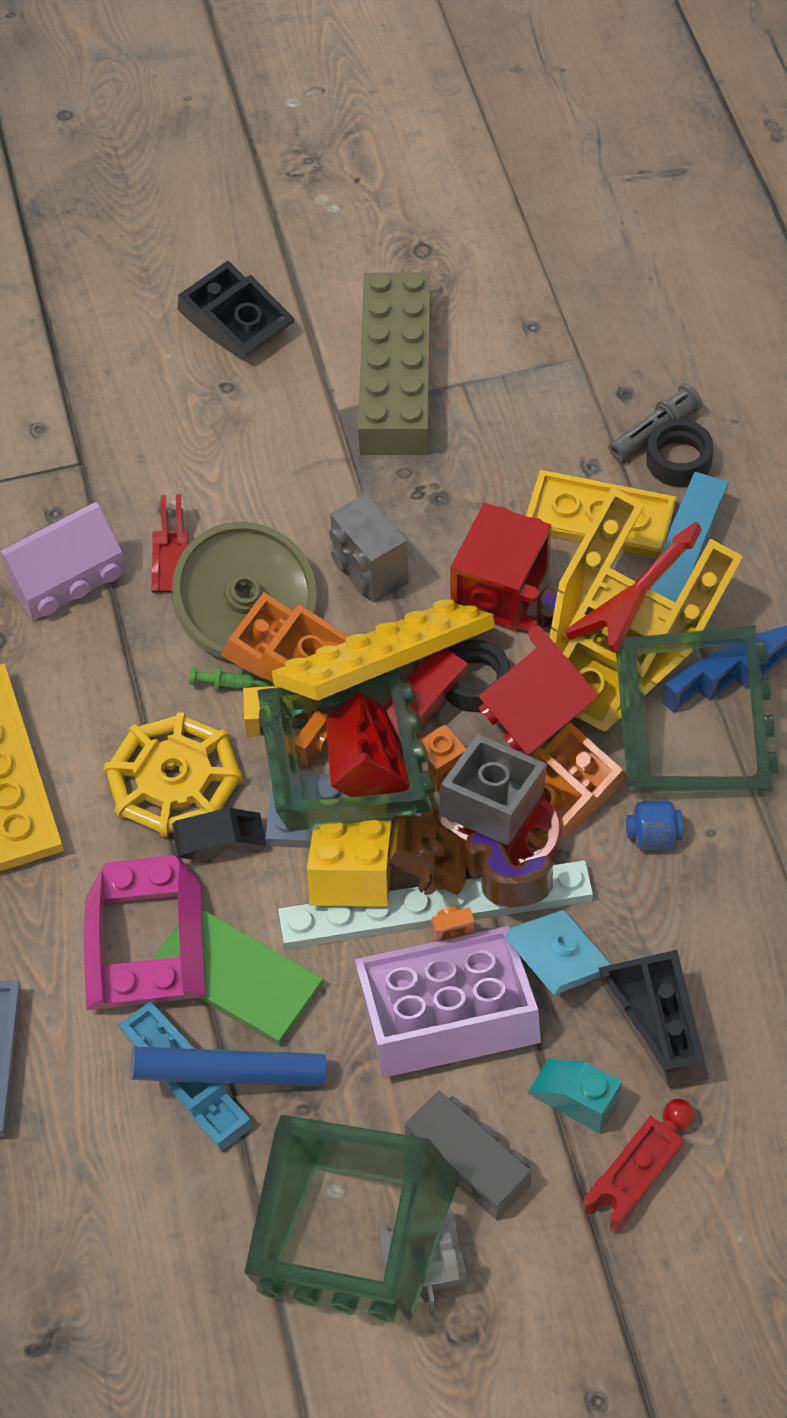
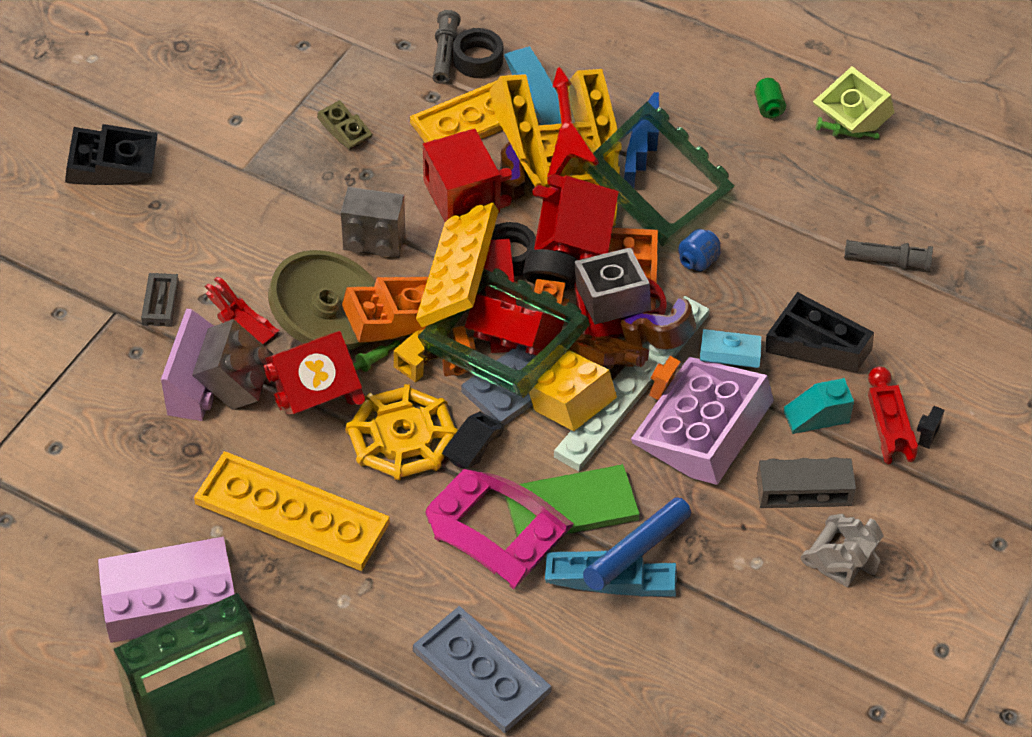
camera: 50 degrees left, 5 degrees down
(91, 587) = (232, 364): none -> flat silver brick
(129, 483) = (158, 317): none -> dark grey tile
(138, 653) = (314, 374): none -> red container
(395, 364) = (254, 115): olive brick -> none
(424, 1202) = (773, 514): clear green windscreen -> none
(469, 720) = (550, 266): none -> black tyre
(471, 433) = (343, 126): none -> olive slope
(665, 1212) = (930, 426): none -> black plate

